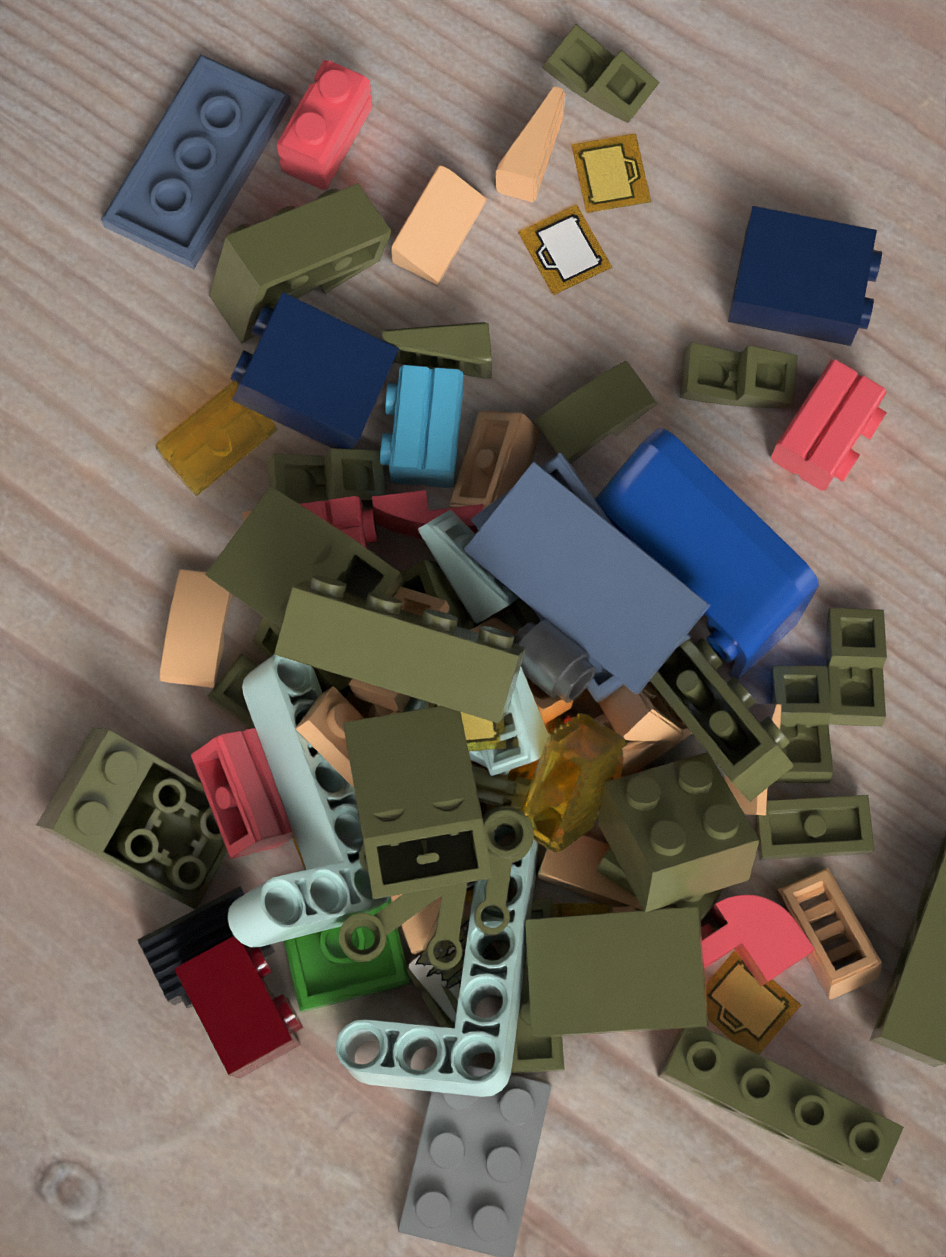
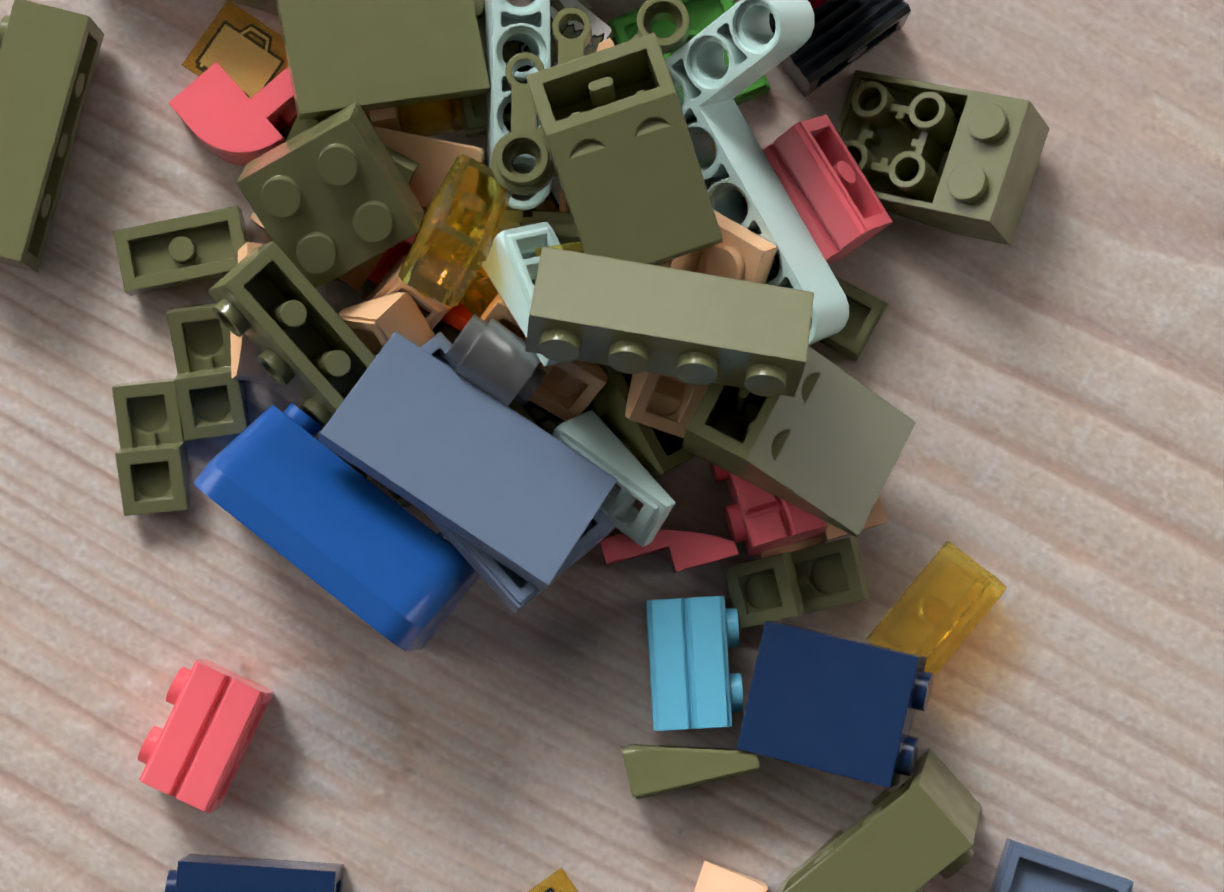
camera: 170 degrees right, 10 degrees up
(195, 631) = (917, 373): light nougat slope -> none
(495, 457) = (600, 632): light nougat slope -> none
(595, 411) = (488, 714): olive slope -> none
(741, 379) = (322, 788): olive slope -> none
(853, 975) = (131, 95): light nougat slope -> none

